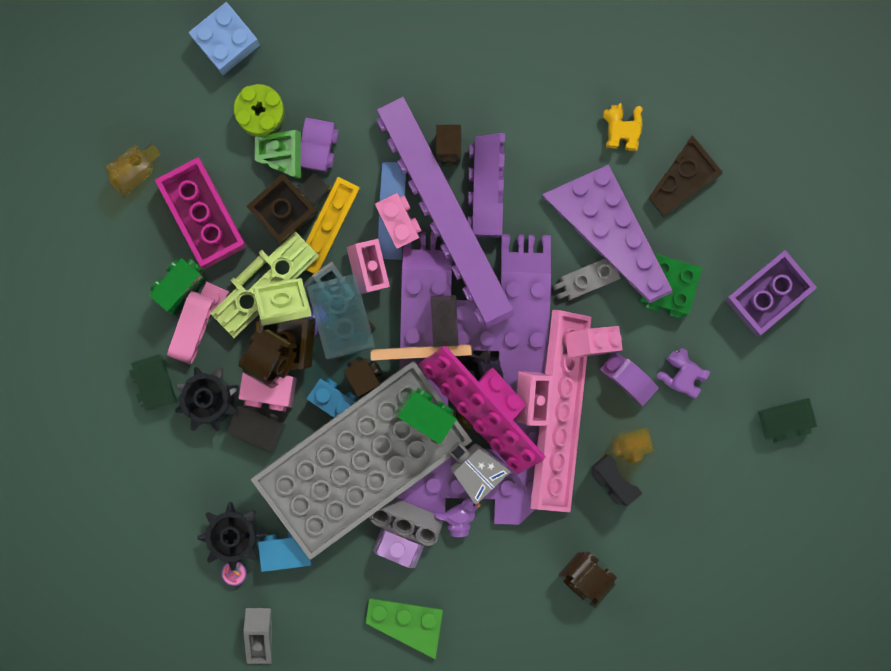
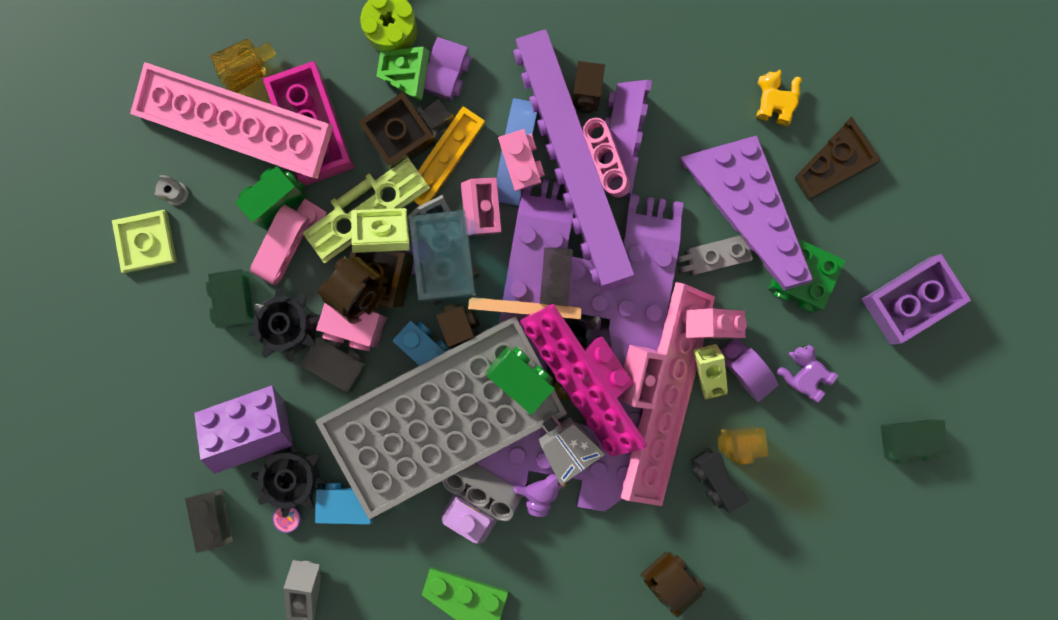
camera: 10 degrees right, 0 degrees up
(65, 341) = (144, 241): none -> yellowish green tile
(91, 292) = (178, 194): none -> light grey piece
(131, 221) = (232, 120): none -> bright pink plate
(164, 584) = (208, 520): none -> clear smoke brick
(184, 497) = (242, 429): none -> medium lavender brick
(466, 198) = (601, 146): none -> bright pink beam
(596, 384) = (711, 371): none -> yellowish green leg

